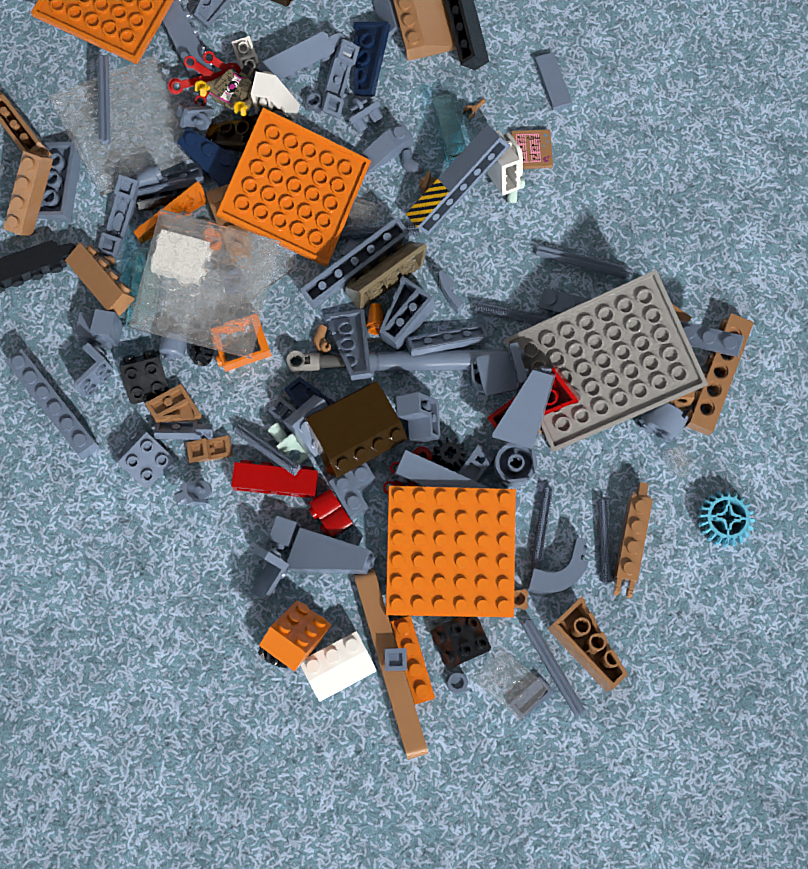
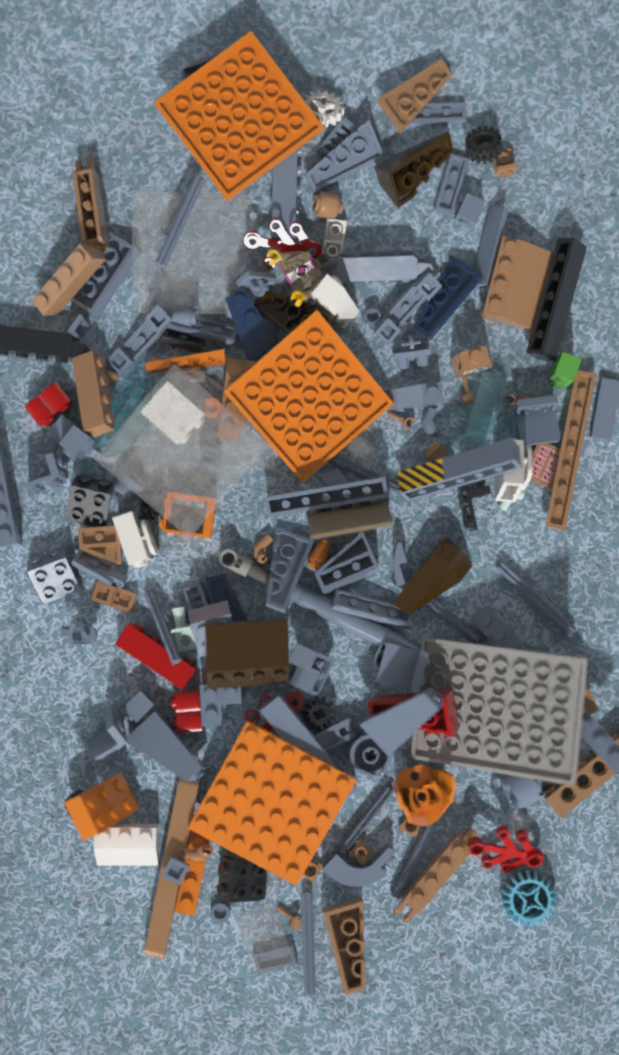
camera: 35 degrees right, 10 degrees up
(57, 230) = (78, 327): none -> sand blue slope
(63, 311) = (49, 405): none -> red brick
(203, 384) = (135, 539): none -> white brick
(225, 31) = (327, 205): none -> medium nougat head
(388, 174) = (402, 420): none -> medium nougat hand
(408, 635) = (199, 853): none -> medium nougat arm
(419, 91) = (471, 361): none -> medium nougat torso
(431, 127) = (466, 398): none -> medium nougat hand
(480, 210) = (465, 502): none -> black bracket
(488, 281) = (436, 575): none -> dark brown wedge
(500, 62) = (564, 370): none -> bright green brick
(500, 111) = (537, 419): none -> sand blue bracket
(530, 653) = (295, 921): none -> medium nougat hand
(543, 126) = (570, 450): none -> medium nougat plate
(559, 563) = (367, 850): none -> medium nougat plate
(586, 473) = (436, 789): none -> orange piece
(589, 506) = (412, 830): none -> medium nougat plate
(684, 485) = (531, 856): none -> red plant

